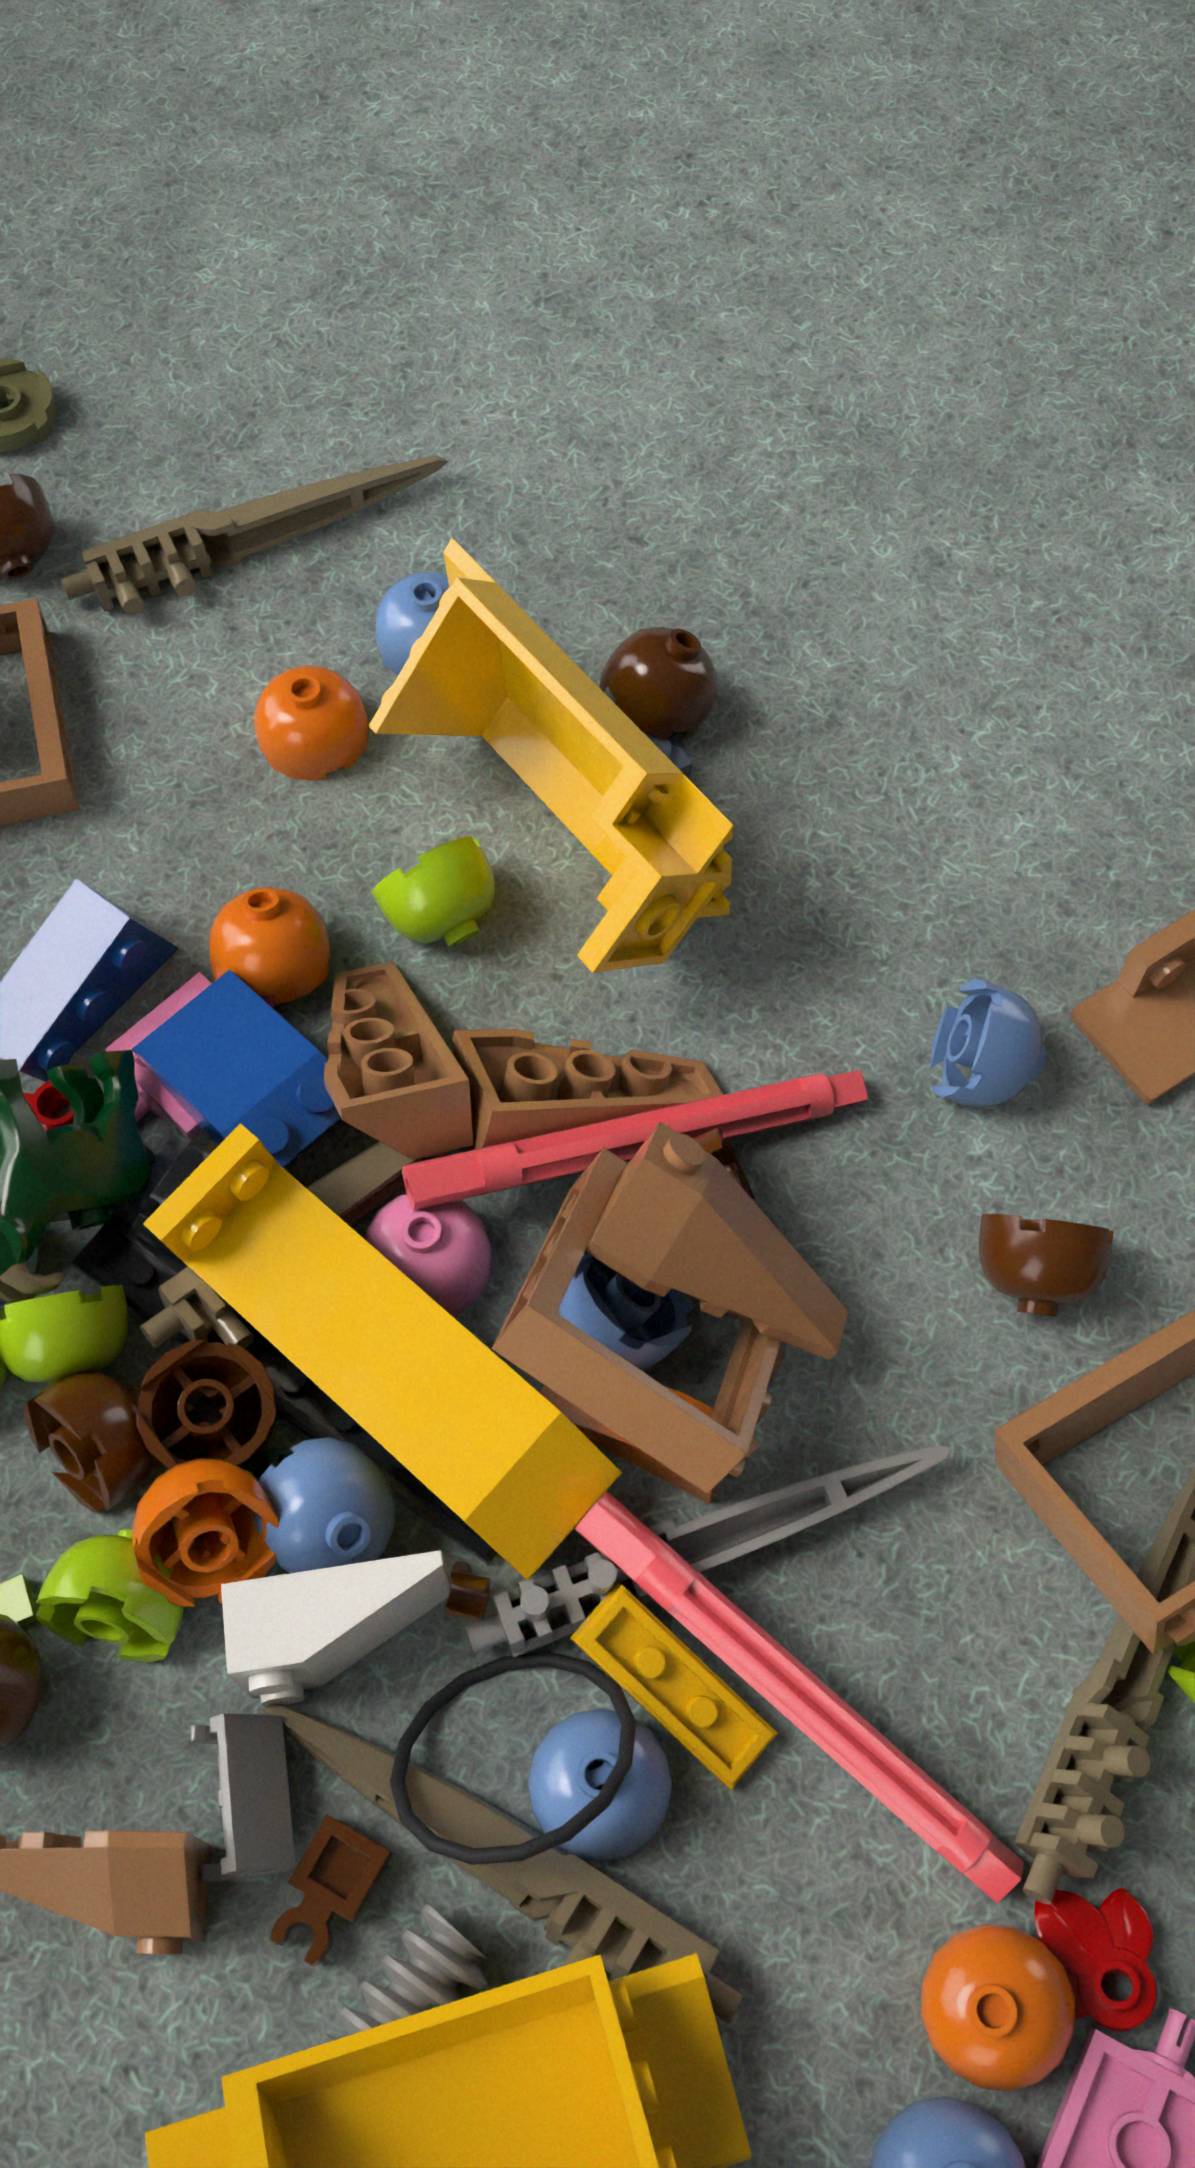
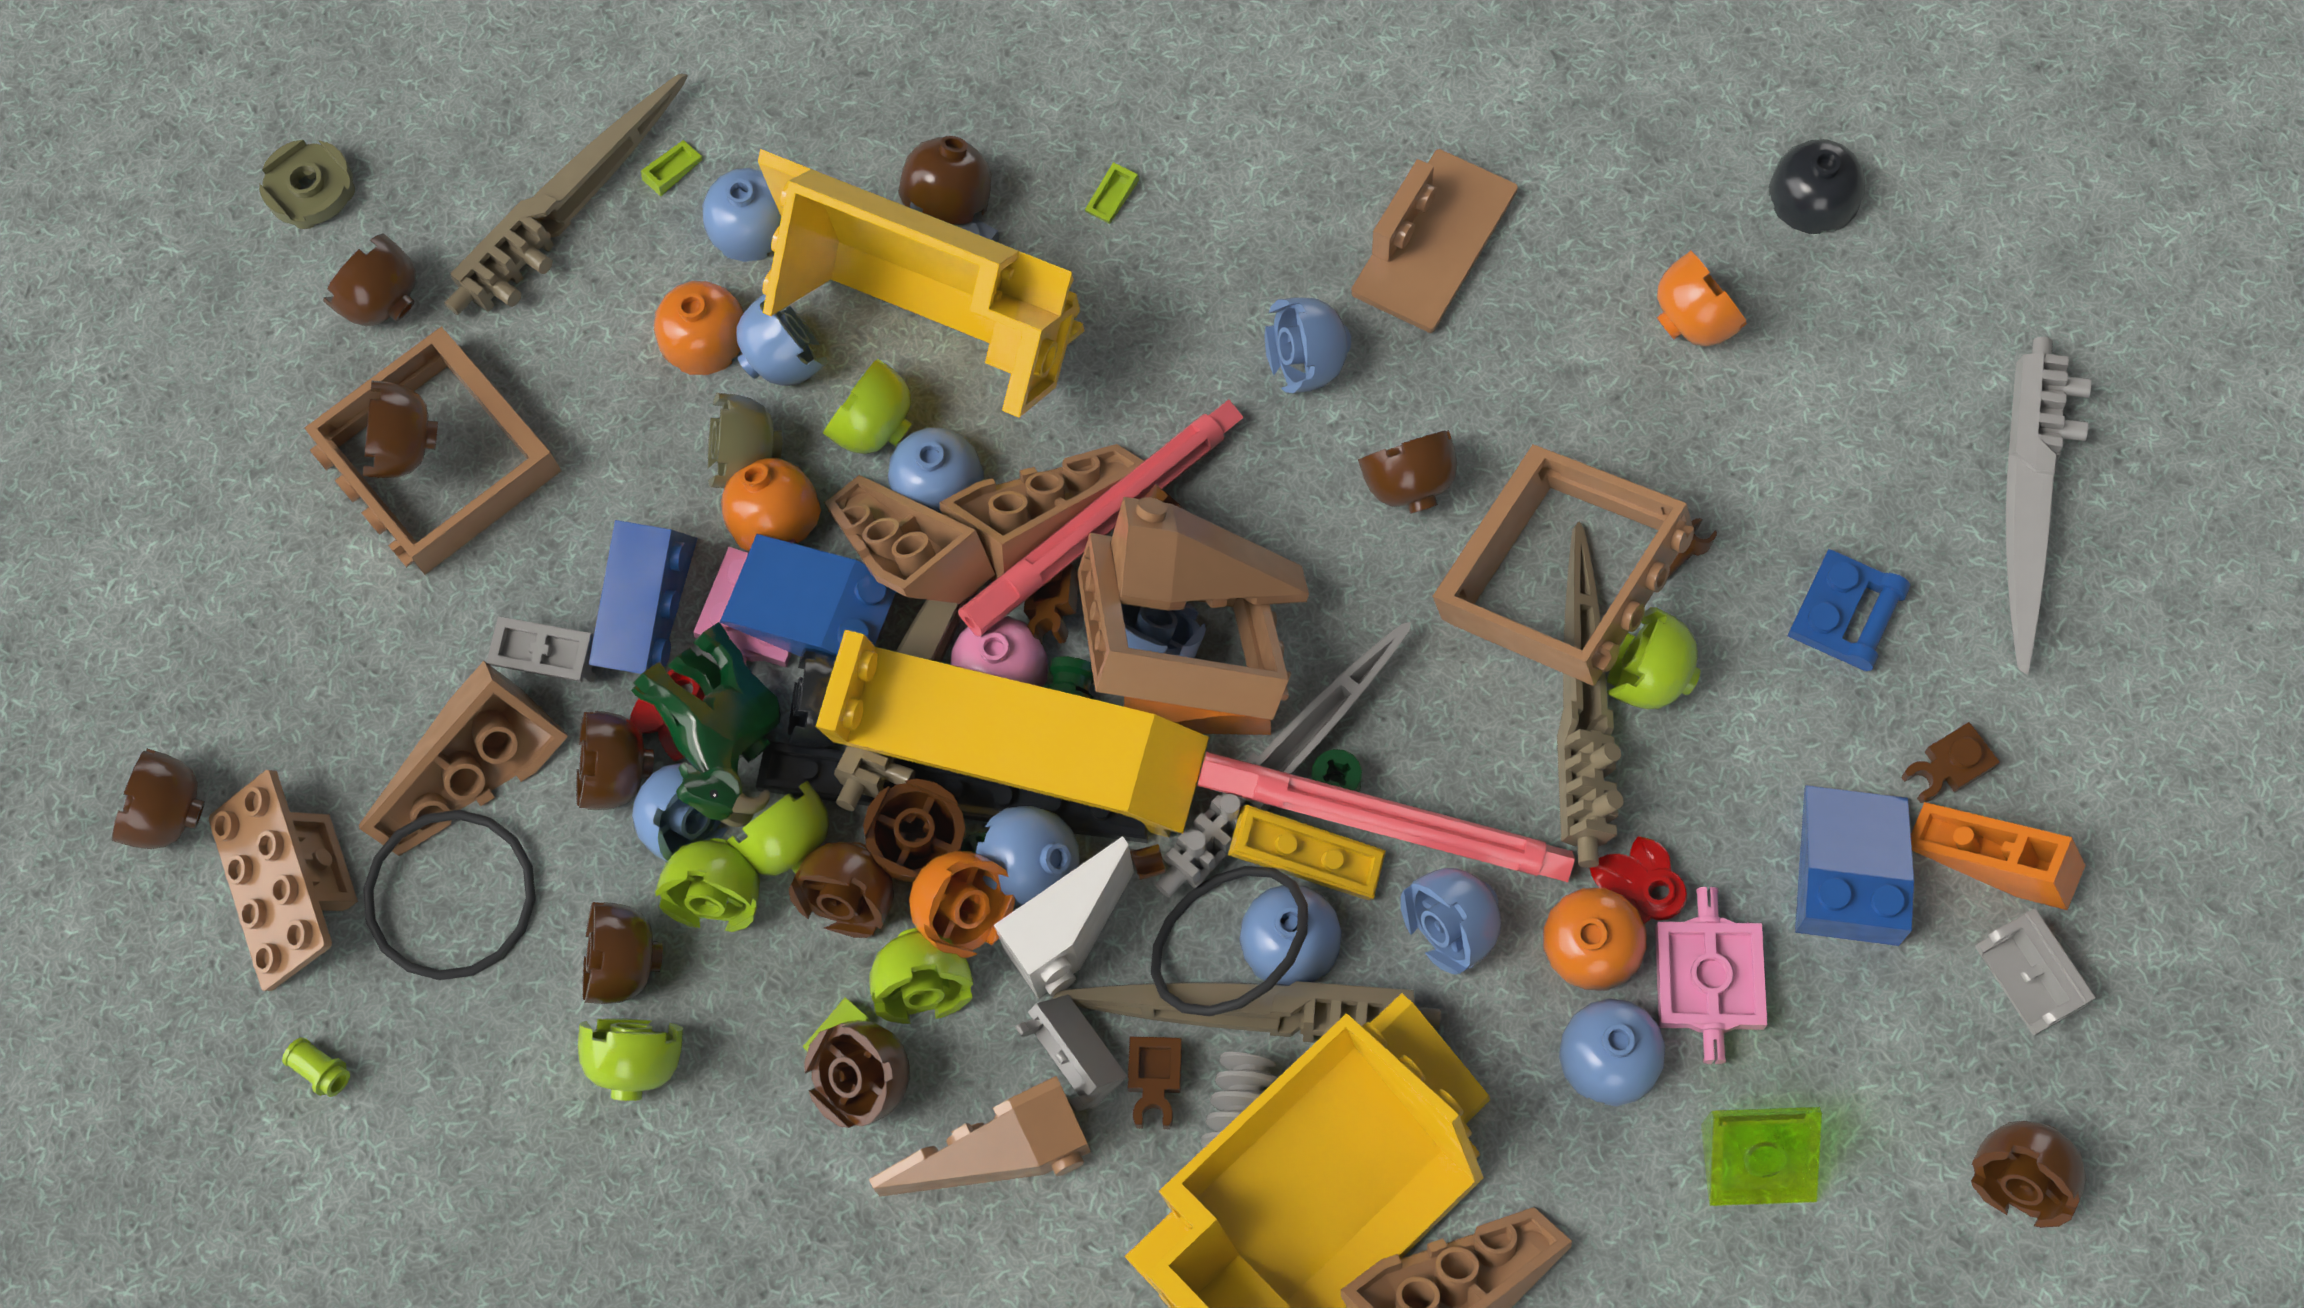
camera: 20 degrees left, 5 degrees up
(281, 854) = (740, 436): none -> olive cylinder
(374, 768) = (774, 343): none -> medium blue cylinder
(378, 548) = (670, 167): none -> lime piece
(475, 988) = (933, 466): none -> medium blue cylinder
(490, 1313) = (1071, 676): none -> dark green wheel
(523, 1212) = (1051, 603): none -> reddish brown plate
(767, 1579) = (1338, 761): none -> dark green wheel
(825, 1875) = (1455, 916): none -> medium blue cylinder
(845, 779) = (1112, 193): none -> lime piece

